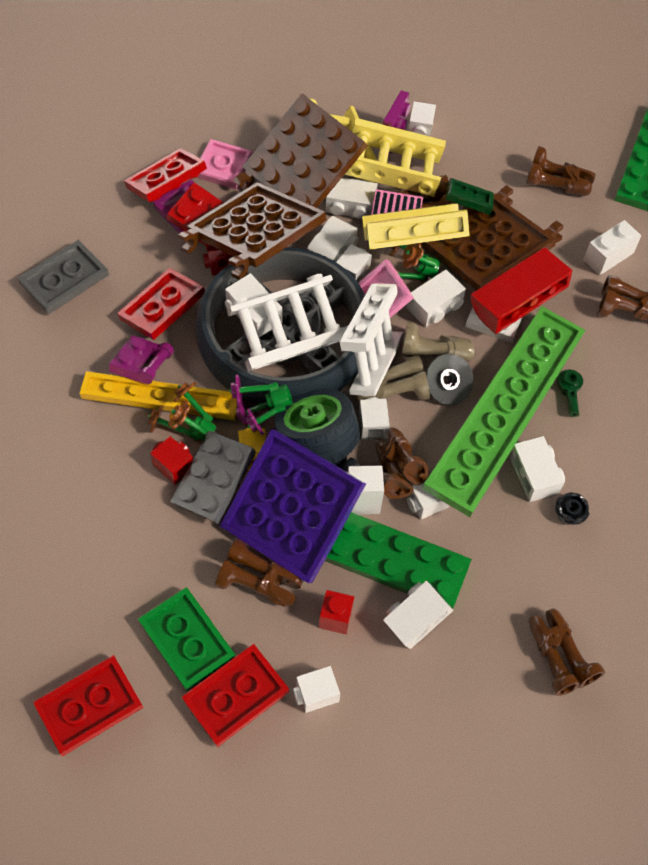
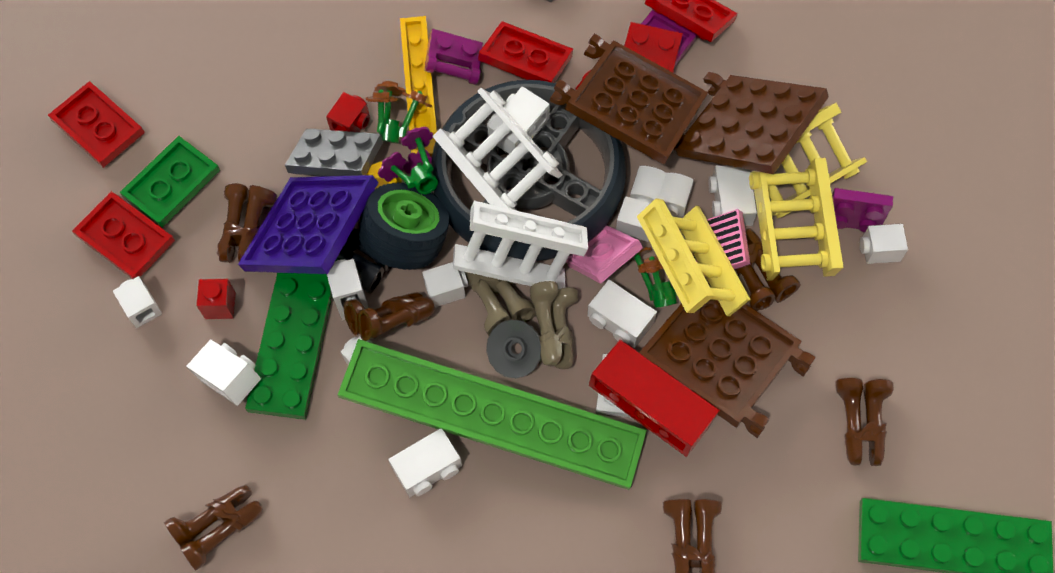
camera: 80 degrees right, 5 degrees up
(223, 163) = (738, 56): bright pink tile -> none
(469, 196) = (772, 314): dark green plate -> none
(570, 383) = (554, 484): dark green plate -> none
(574, 501) = (383, 501): black plate -> none
(612, 247) = (767, 501): white brick -> none

